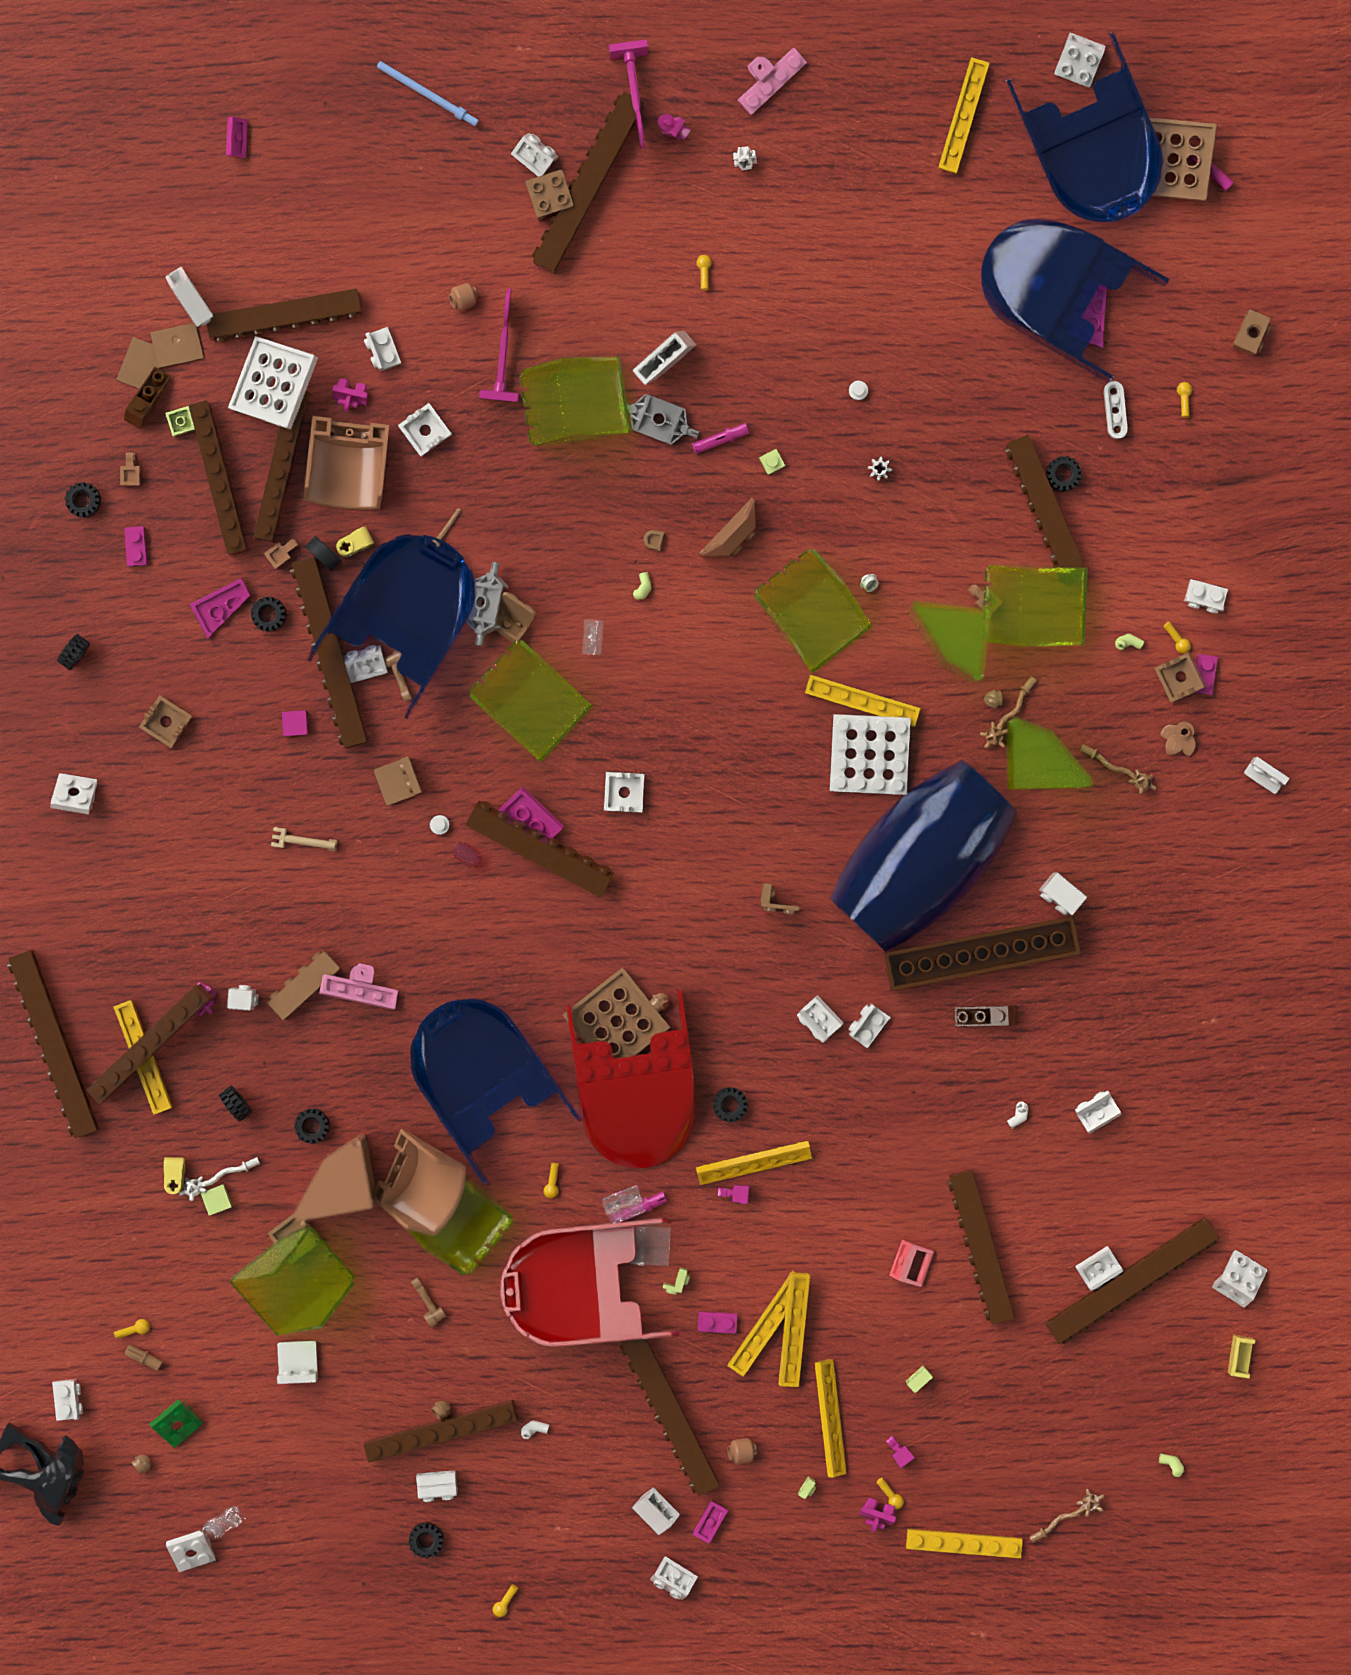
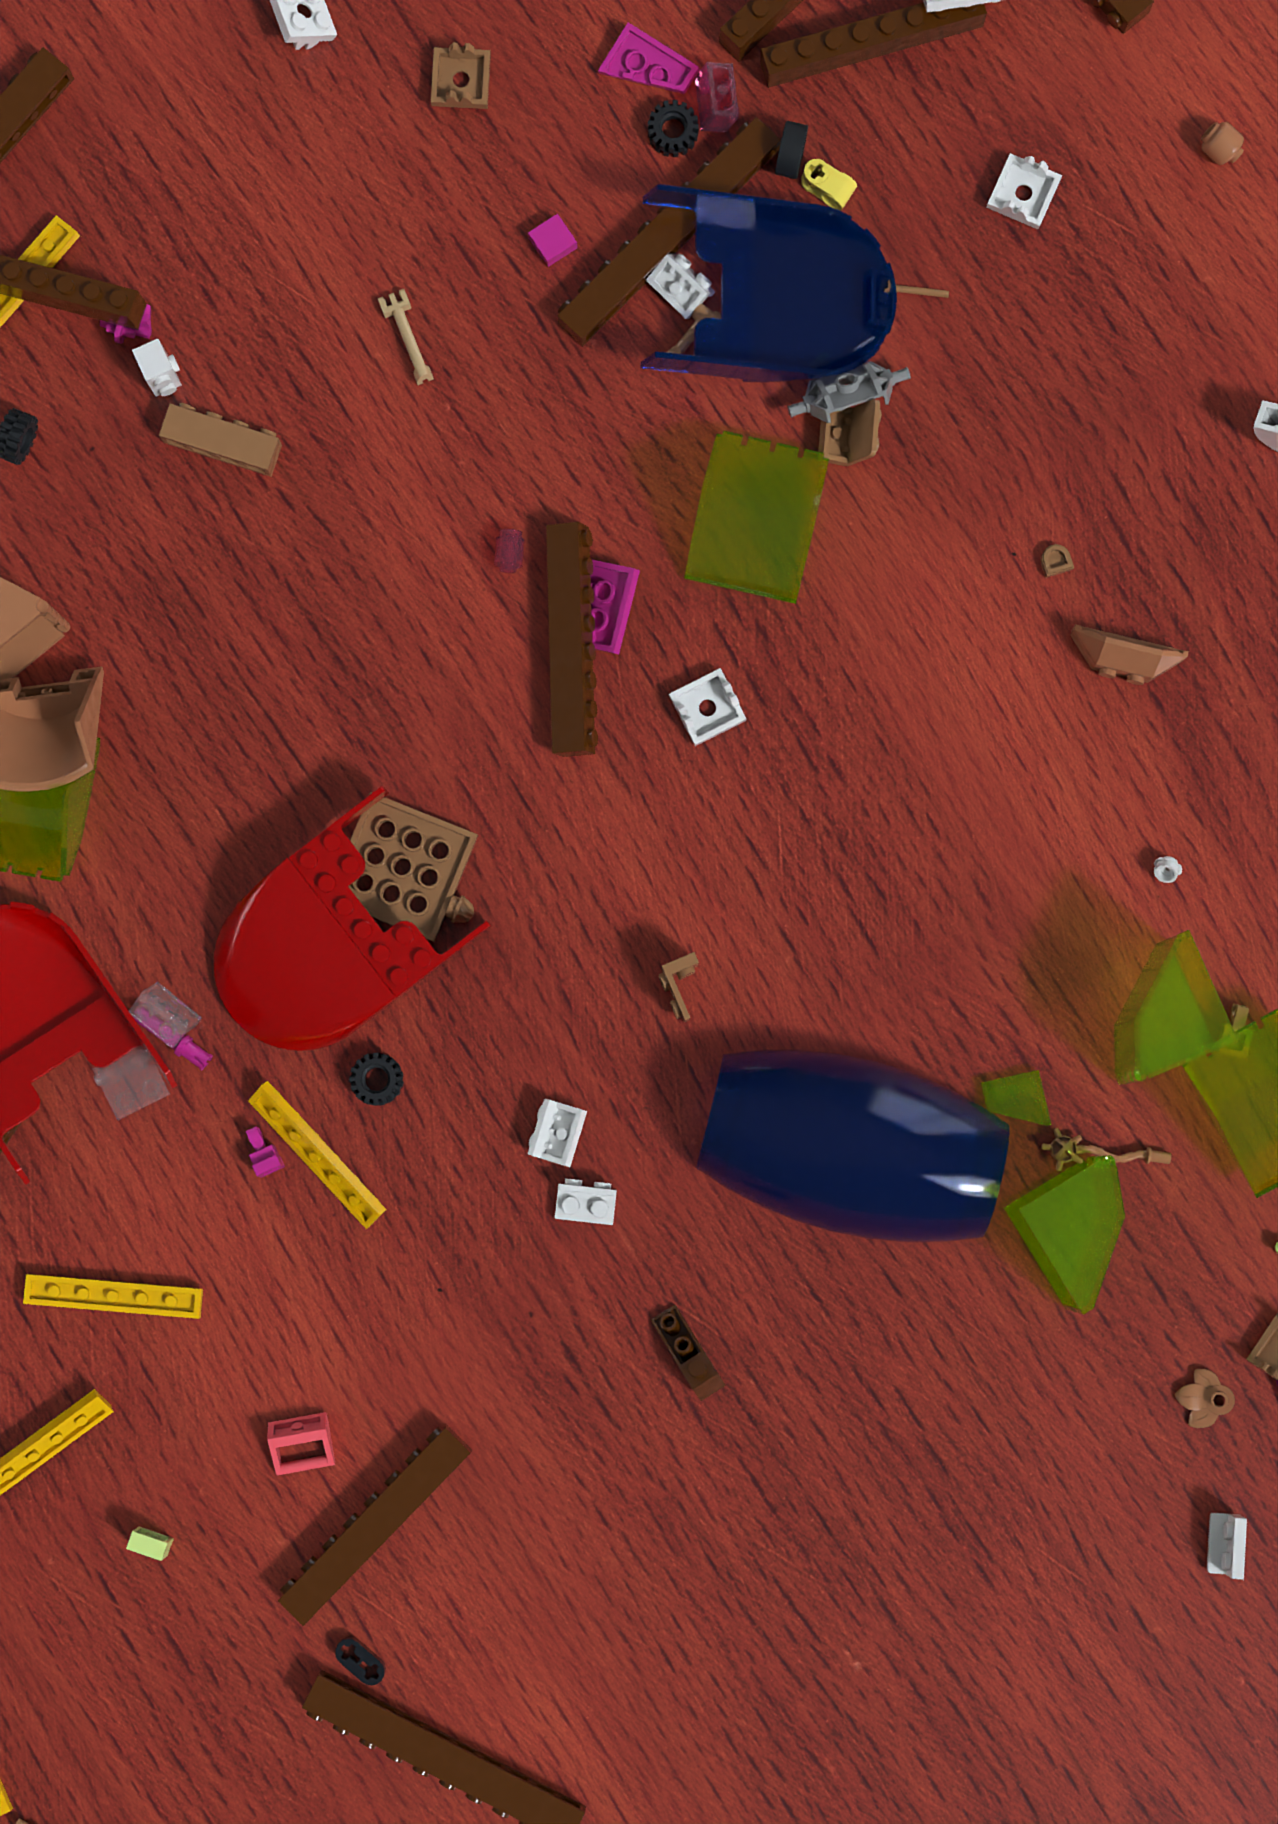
camera: 65 degrees right, 5 degrees down
(266, 578) = (716, 97): none -> clear pink brick
(279, 554) = (757, 99): nougat plate -> none
(300, 1126) = (31, 540): black tyre -> none
(346, 464) = (919, 113): nougat windscreen -> none
(349, 397) = (1010, 73): dark pink hips -> none
(359, 988) = (255, 510): bright pink plate -> none
(383, 349) = (1094, 82): white bracket -> none
(398, 781) = (554, 411): medium nougat bracket -> none
(439, 824) = (528, 495): white plate -> none
(473, 1063) = (236, 710): clear blue windscreen -> none
(499, 391) = (1128, 256): dark pink piece -> none
(551, 1190) = (132, 910): yellow bar -> none
(574, 400) = (1178, 353): clear neon green windscreen -> none
(592, 637) = (885, 551): clear hips -> none
(644, 588) = (986, 583): yellowish green arm -> none
(674, 419) = (1209, 499): light grey plate -> none
(682, 1279) = (108, 1148): yellowish green bracket -> none
(717, 1322) = (78, 1228): dark pink plate -> none
(720, 438) = (1238, 570): dark pink pin -> none
(772, 462) = (1247, 654): yellowish green plate -> none
(794, 1329) = (123, 1335): yellow plate -> none
(812, 609) = (1089, 814): clear neon green windscreen -> none
(860, 699) = (1008, 948): yellow plate -> none
(878, 783) = (976, 965): white piece -> none
(901, 1455) = (35, 1580): dark pink piece -> none
(950, 744) = (1017, 1097): none -> clear neon green wing
(981, 953) = (768, 1298): reddish brown brick -> none
(993, 699) = (1111, 1120): medium nougat plate -> none
(1020, 1115) = (582, 1476): white arm -> none
(1053, 1301) = (365, 1655): none -> black beam
(1062, 893) = (908, 1361): white brick -> none
(1097, 1111) = (645, 1578): white bracket -> none
(1099, 1268) = (435, 1704): white bracket -> none
(1140, 780) = (1119, 1380): medium nougat piece -> none

